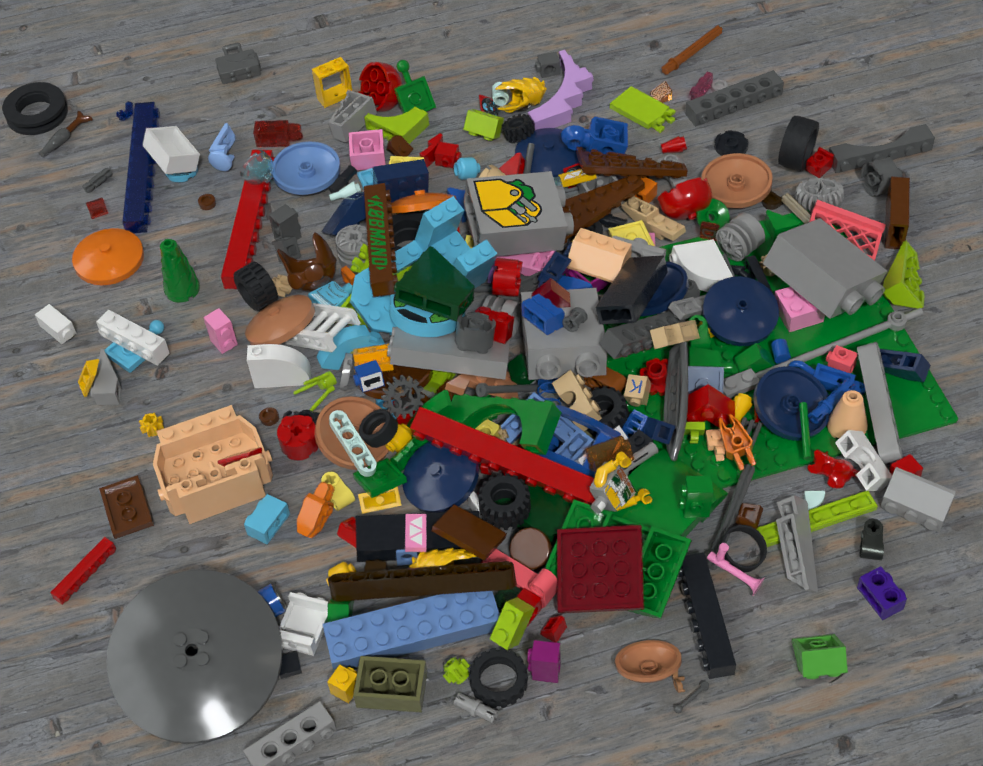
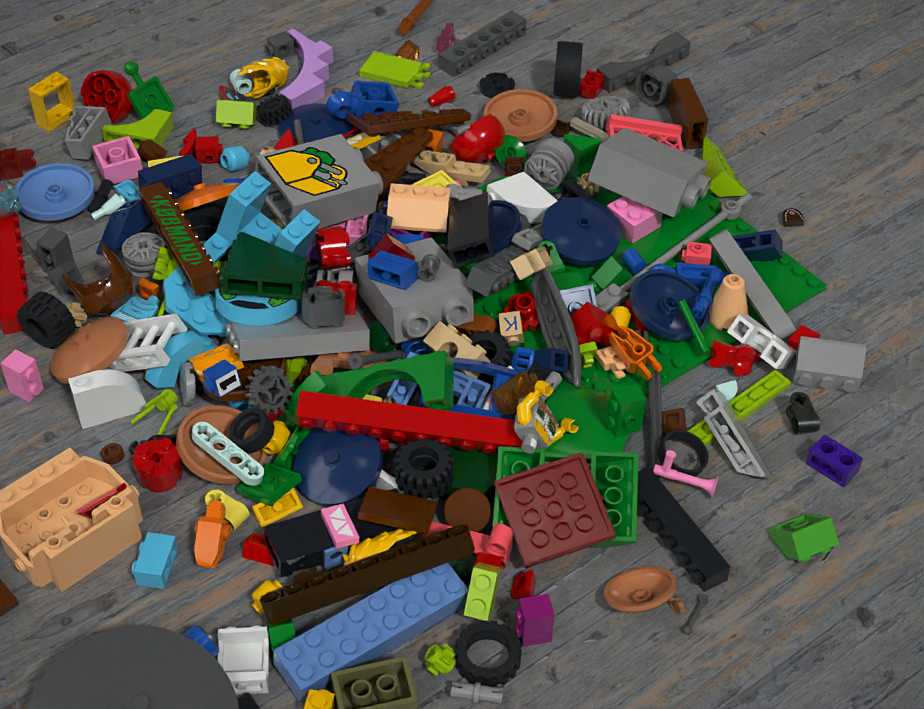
camera: 25 degrees left, 5 degrees down
(956, 342) = (792, 217): none -> dark brown tile

